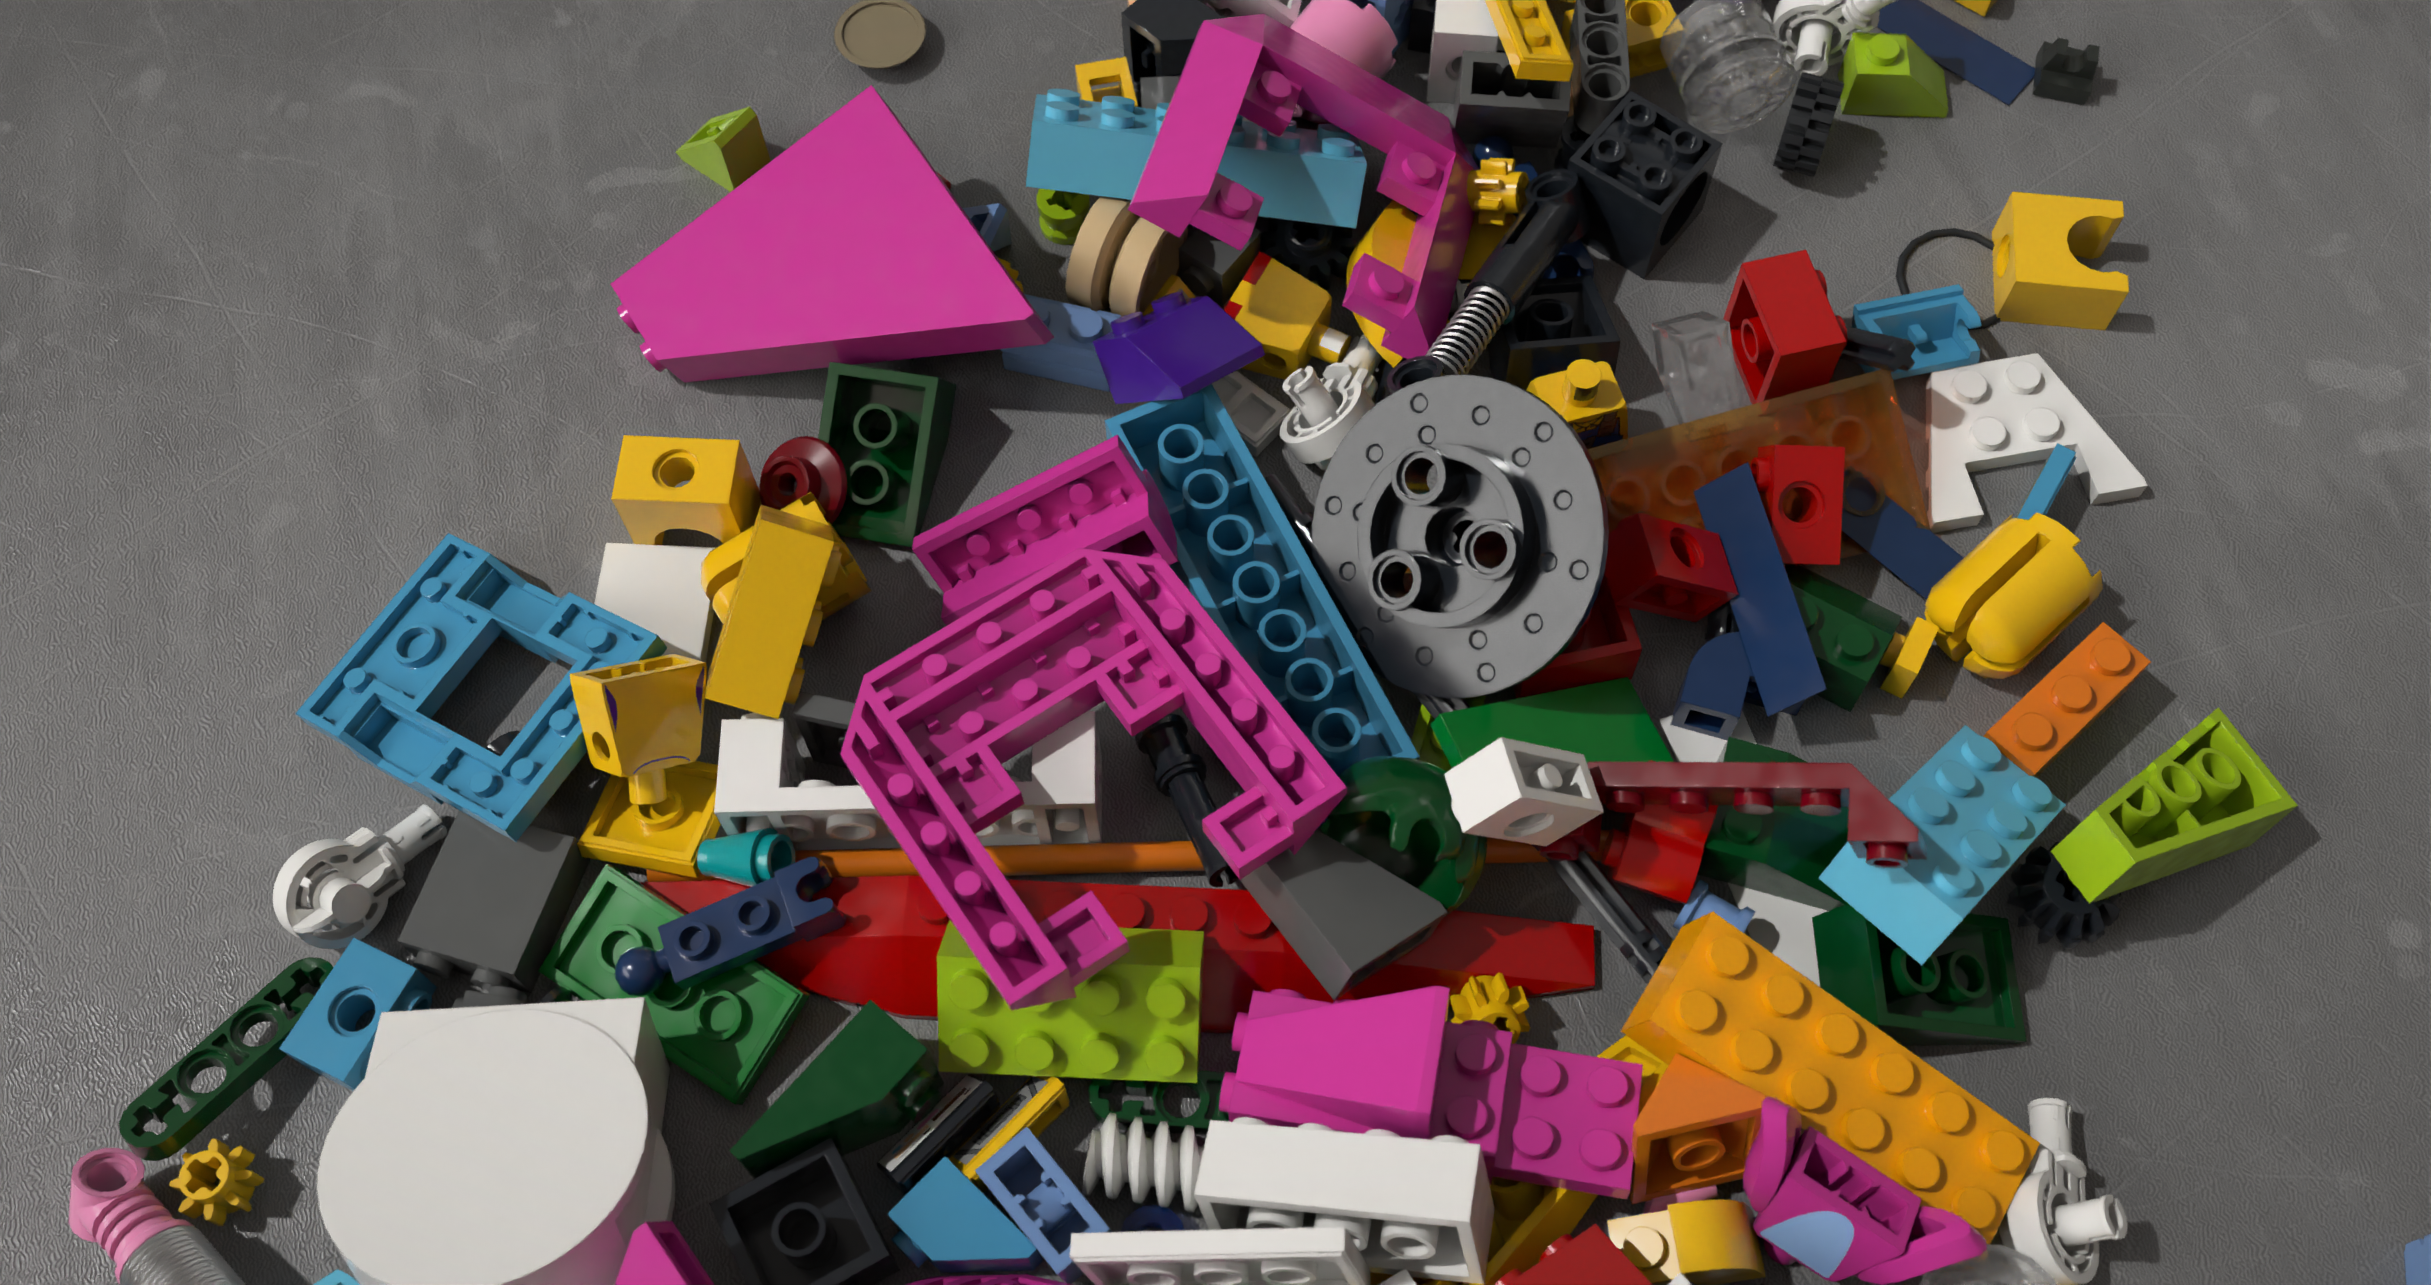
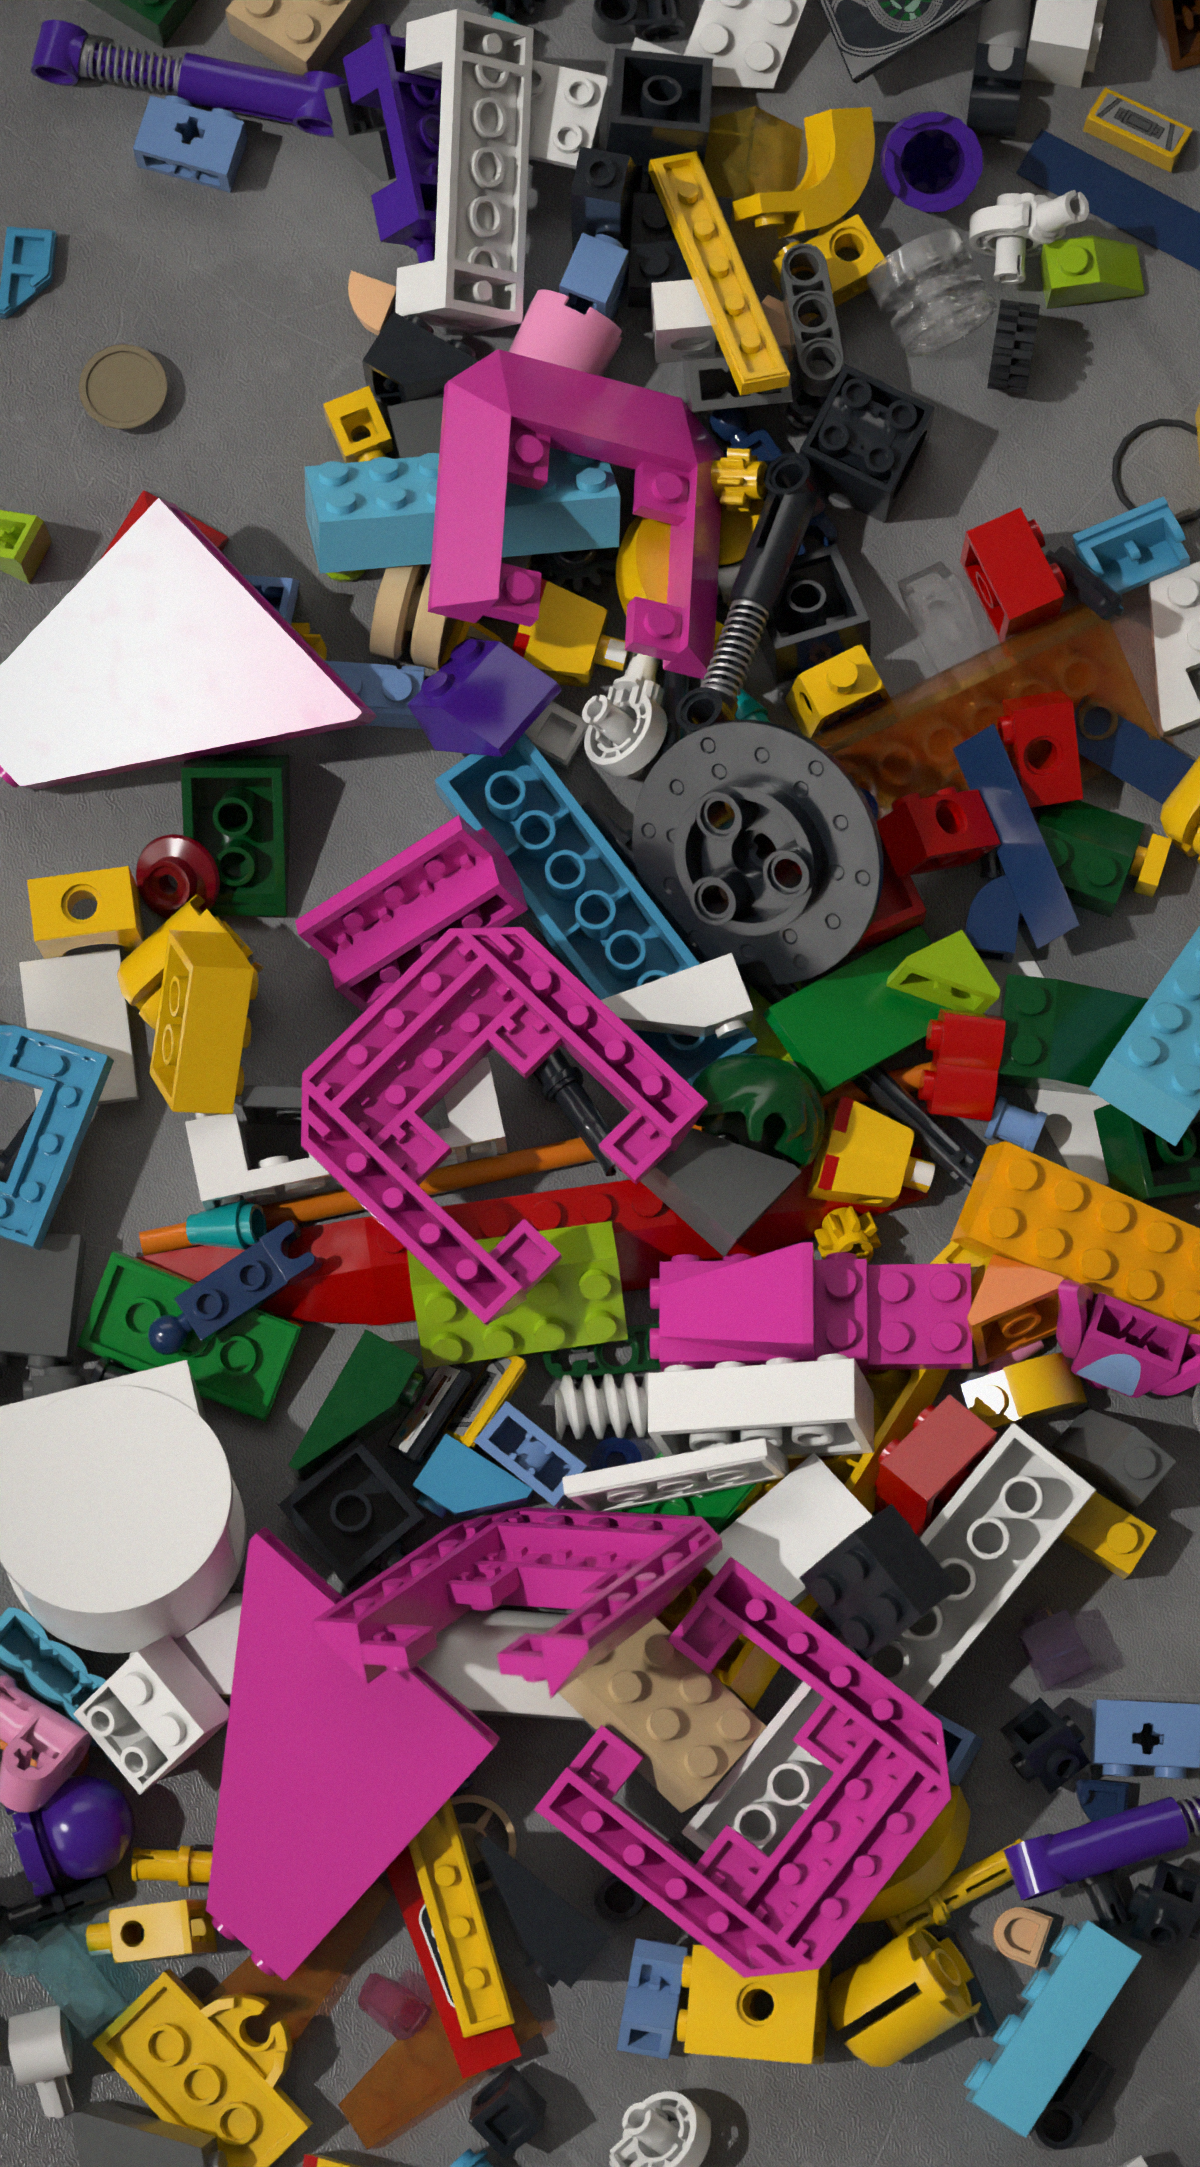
camera: 10 degrees left, 15 degrees up
(642, 719) = (116, 1128): yellow torso -> none
(658, 834) = (137, 1196): yellow tile -> none
(1348, 691) = (689, 1002): none -> white slope
(1523, 792) = (845, 1076): white brick -> none
(1527, 919) = (865, 1158): none -> yellow torso
(1653, 723) = (947, 975): none -> lime slope
(1874, 824) = (891, 1068): dark red slope -> none

